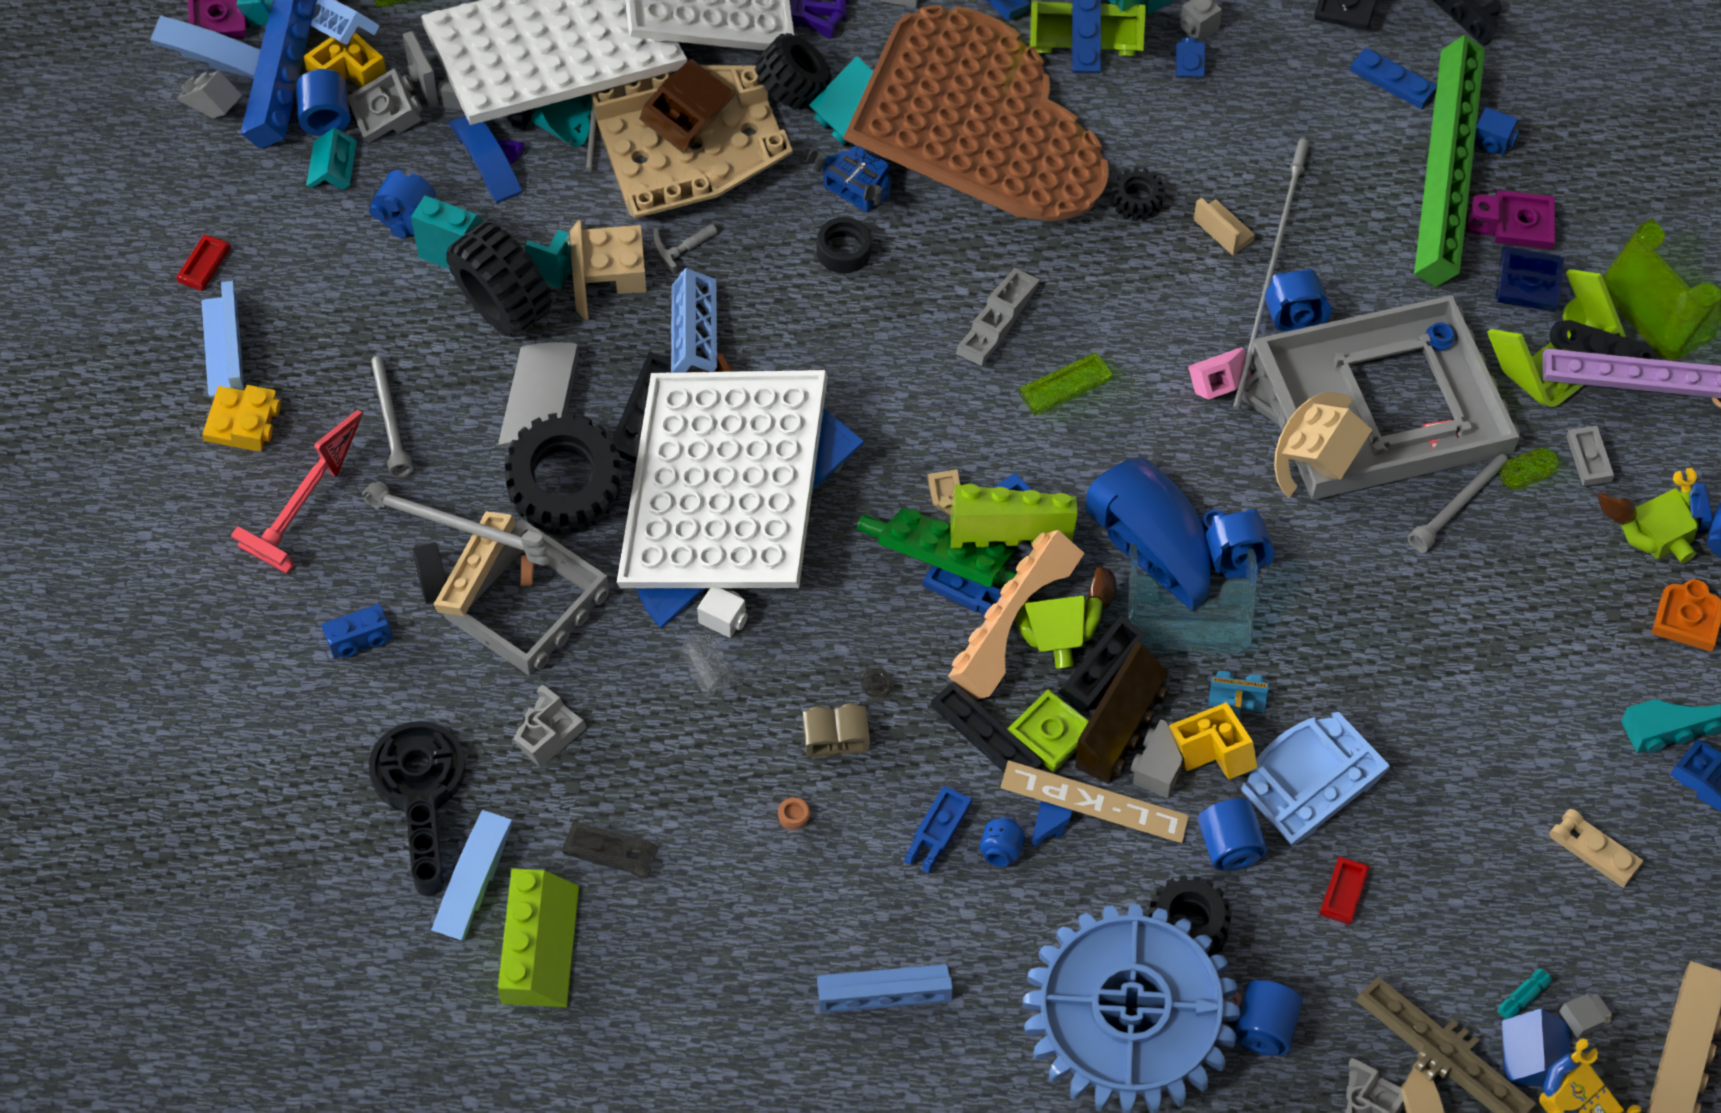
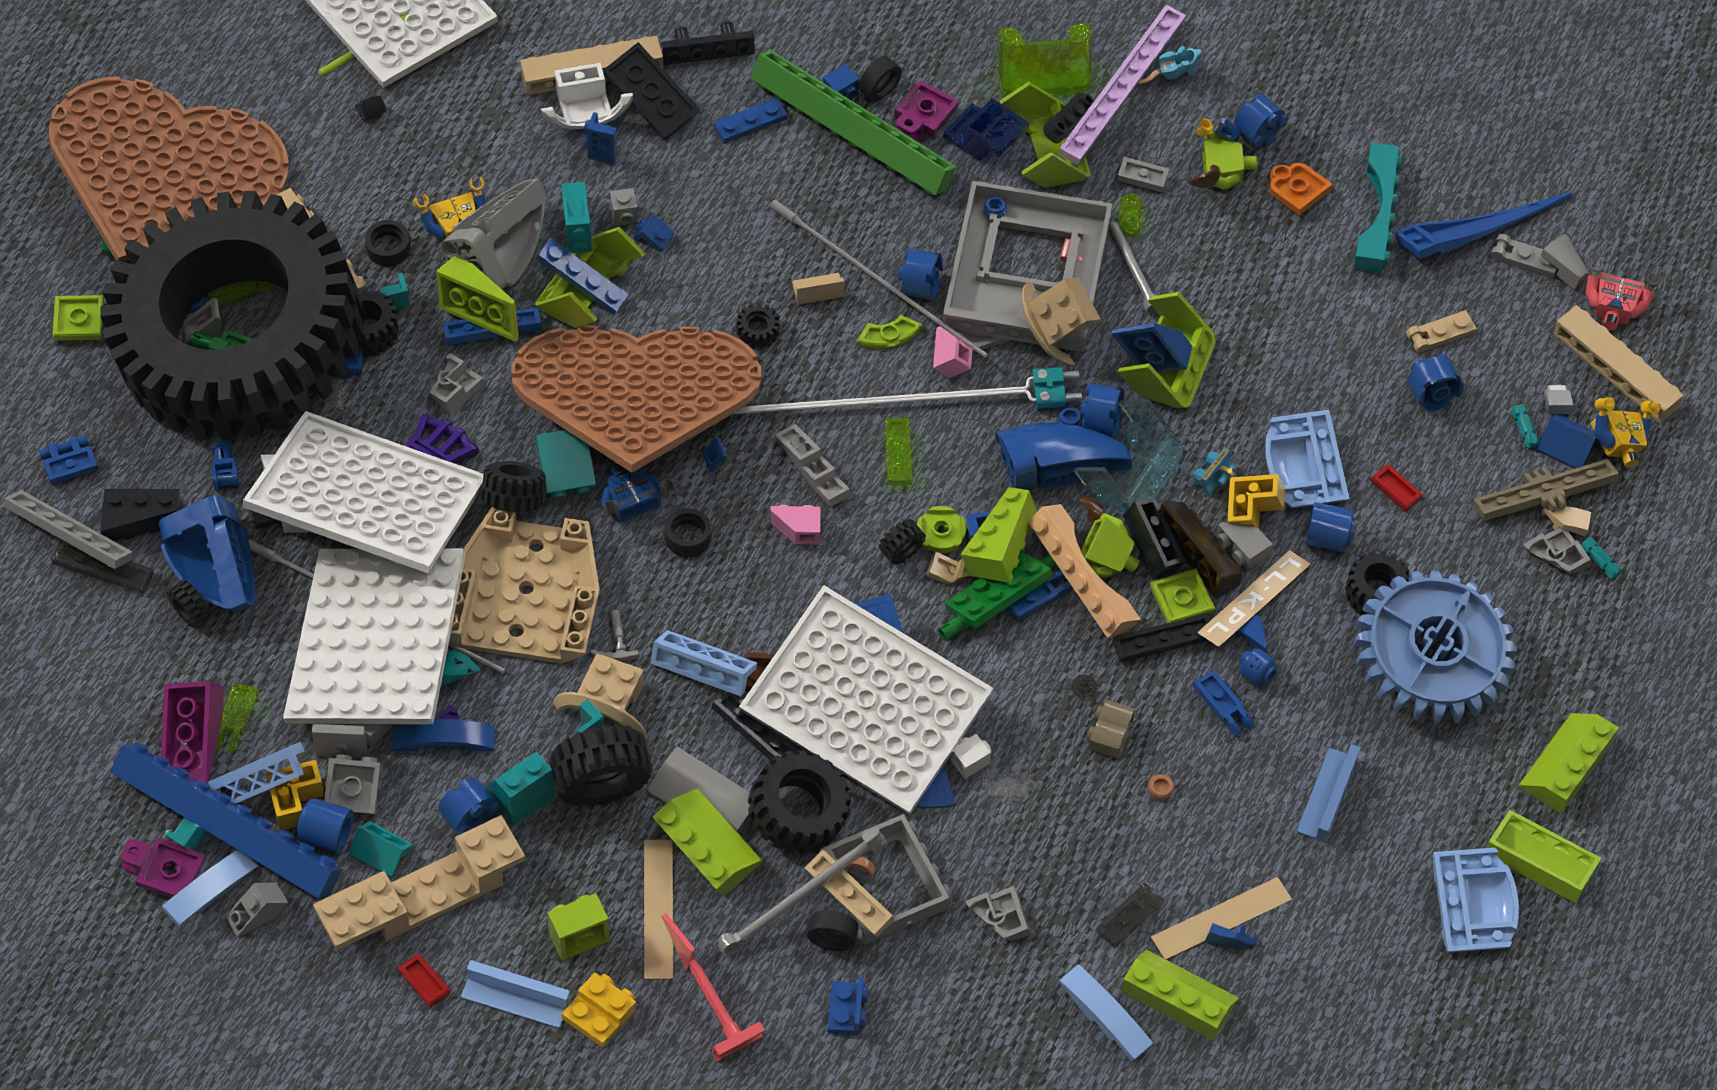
camera: 65 degrees left, 0 degrees up
(267, 200) = (424, 893): none -> tan bracket
(316, 351) = (578, 926): none -> lime brick
(398, 462) = (709, 915): light grey piece -> none
(407, 411) = (658, 901): none -> tan sticker
(419, 792) = (1012, 1022): black beam -> none
(479, 418) = (708, 840): none -> lime slope
(639, 970) = (1226, 937): none -> blue slope
(662, 946) = (1227, 914): none -> tan sticker
(686, 105) = (504, 571): reddish brown slope -> none
(916, 336) = (797, 523): none -> bright pink slope
(945, 430) = (902, 541): none -> black tyre
(956, 228) = (714, 454): none -> blue slope
(989, 449) = (951, 521): none -> lime plate
(1211, 315) = (889, 334): none -> lime tile
(1230, 488) = (1046, 385): none -> piece
(1267, 1018) = (1479, 568): blue piece -> none
(1348, 558) = (1155, 345): none -> blue slope
(1365, 600) = (1178, 386): none -> lime windscreen
(1508, 864) = (1435, 382): none -> blue brick
(1528, 145) = (880, 78): none -> black tyre

